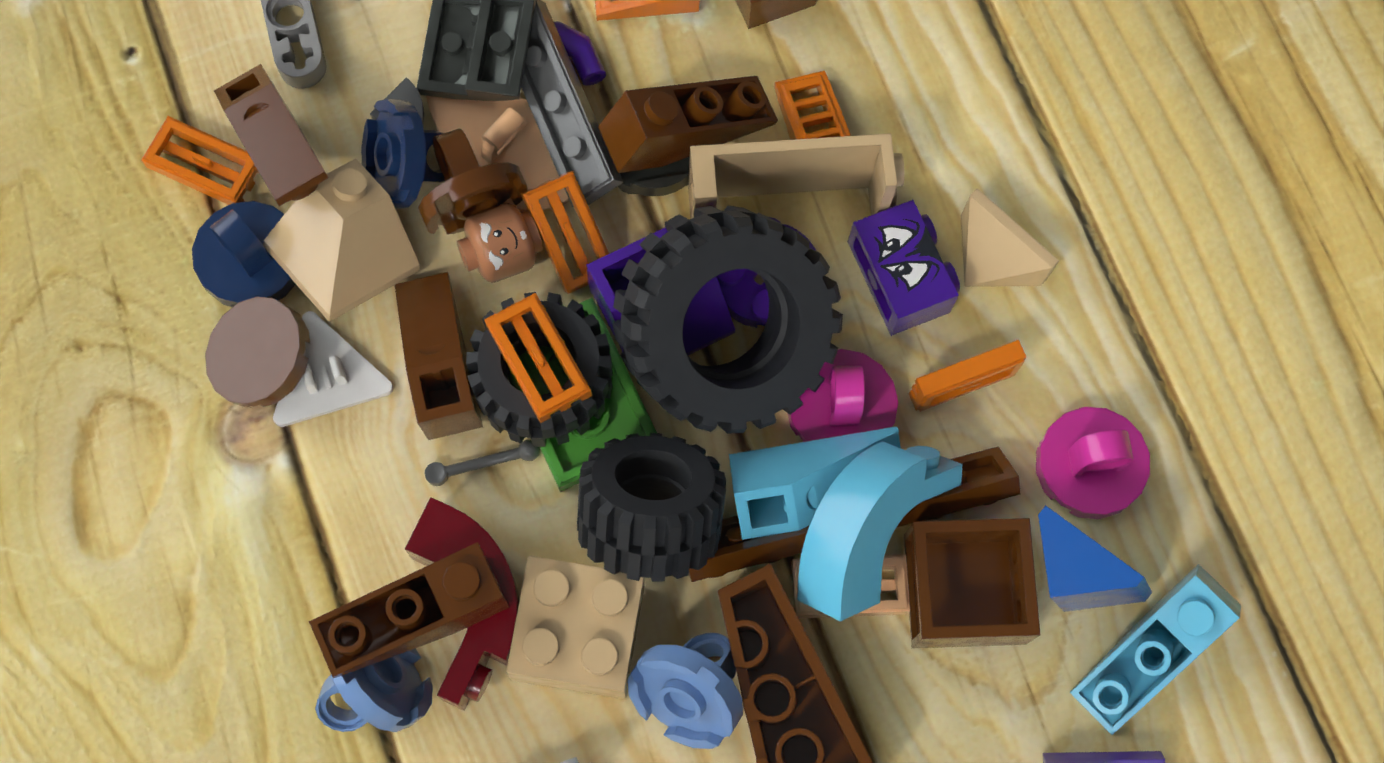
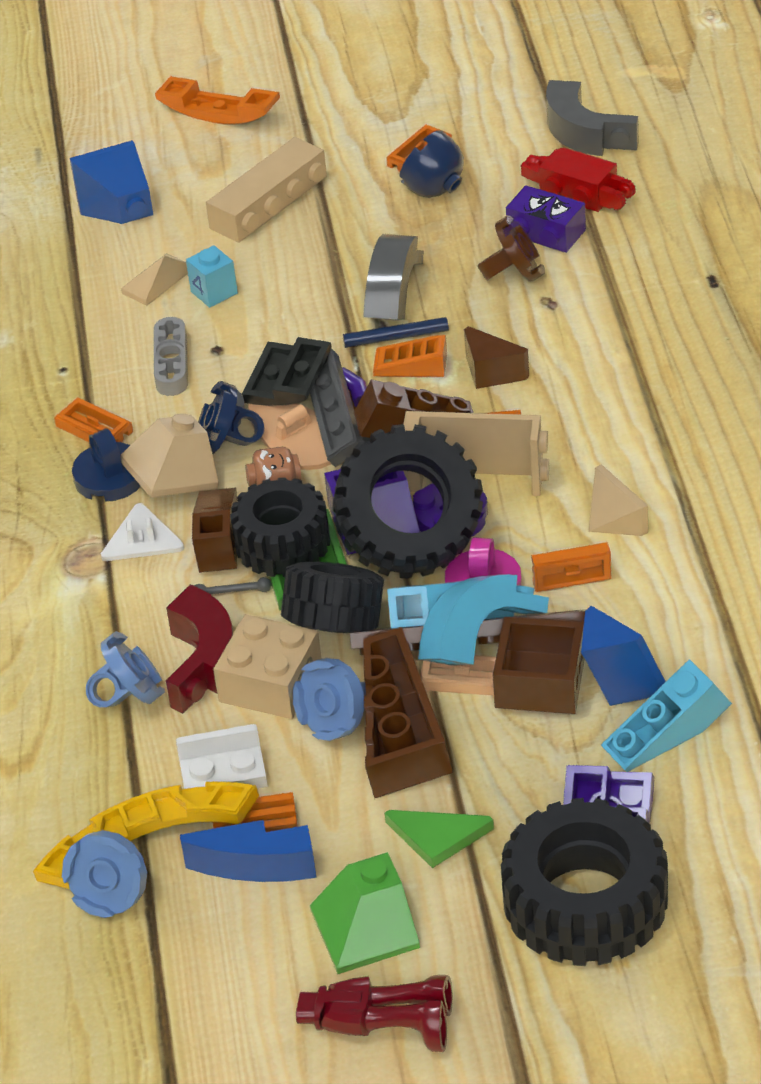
camera: 20 degrees right, 30 degrees down
(257, 352) = (100, 513): tile -> none
(271, 136) = (140, 396): reddish brown slope -> none
(410, 612) = (170, 620): reddish brown slope -> none
(466, 185) = (258, 431): reddish brown tile -> none
(549, 190) = (304, 465): orange tile -> none
(560, 399) = (283, 522): orange tile -> none
(904, 266) = (544, 509): dark purple brick -> none
(1093, 462) = (656, 617): dark pink tile -> none

